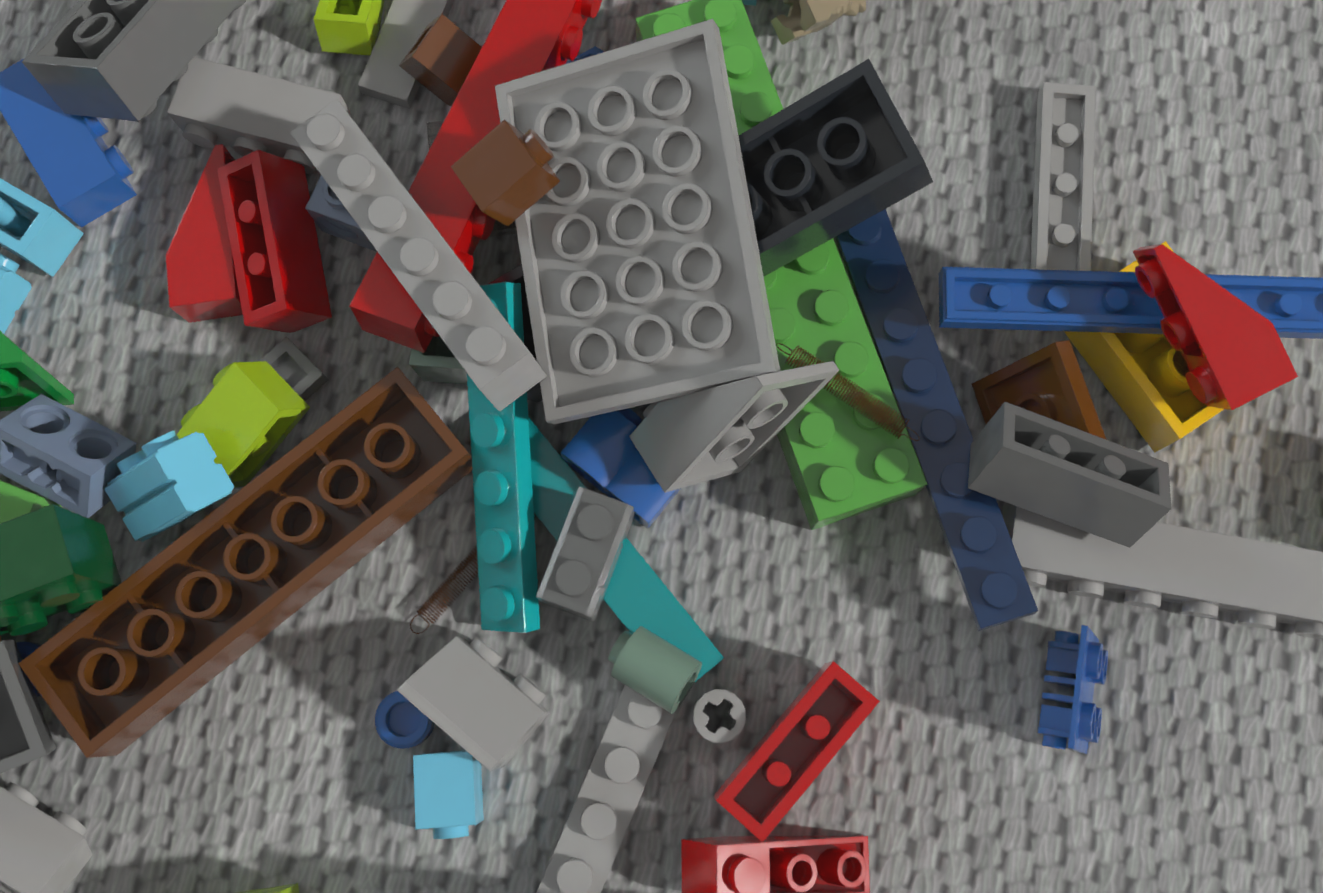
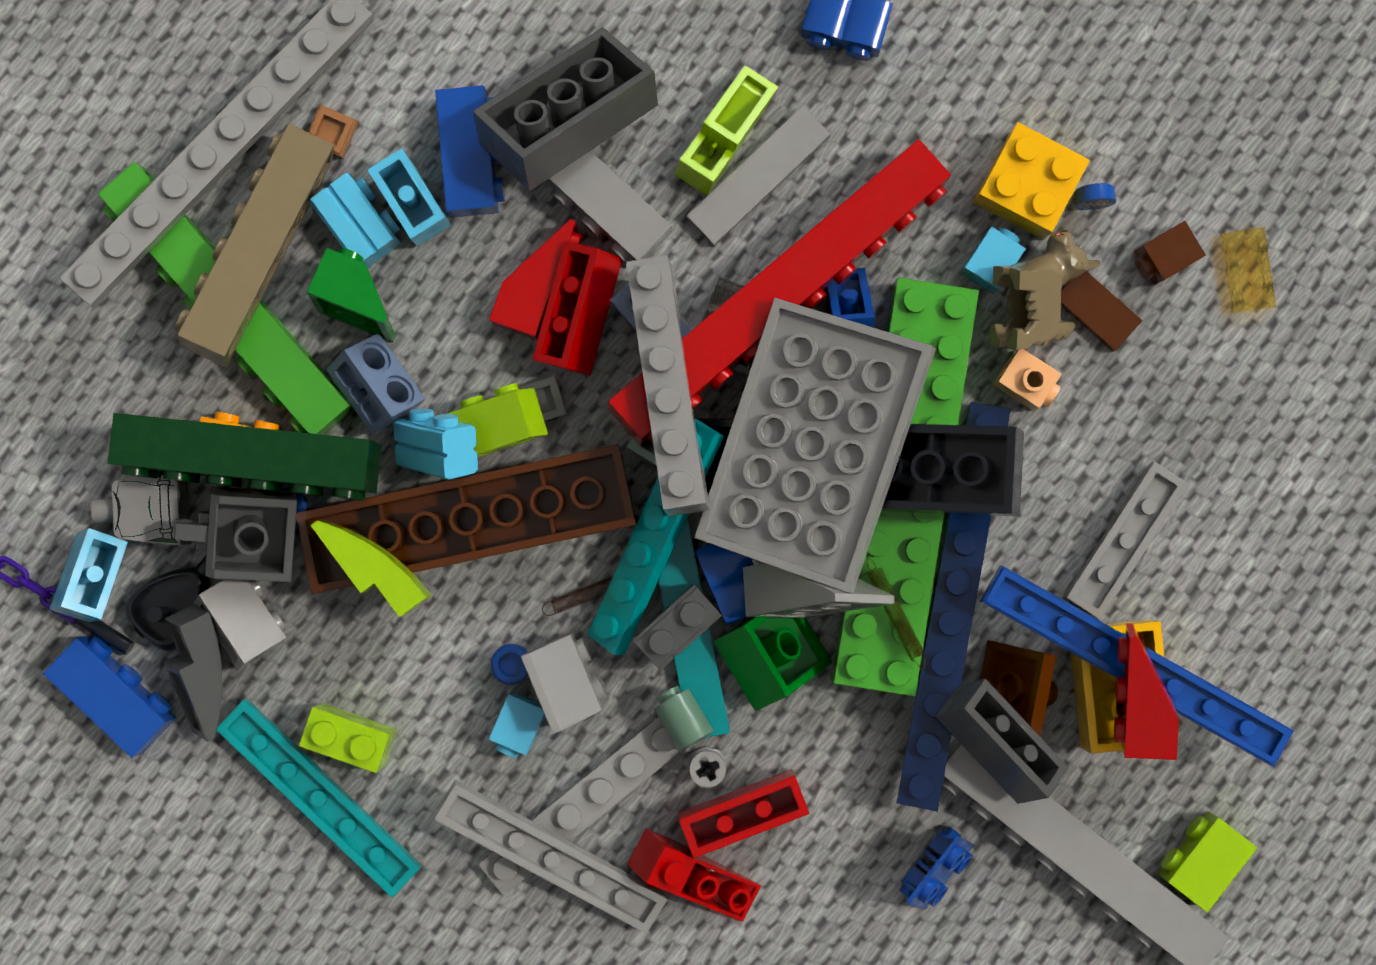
camera: 30 degrees right, 10 degrees up
(146, 678) = (372, 566): none -> lime slope
(442, 58) = (755, 234): reddish brown brick -> none
(507, 172) = (751, 369): reddish brown brick -> none
(723, 535) = (772, 657): none -> green slope
(842, 50) = (1028, 380): none -> light nougat brick

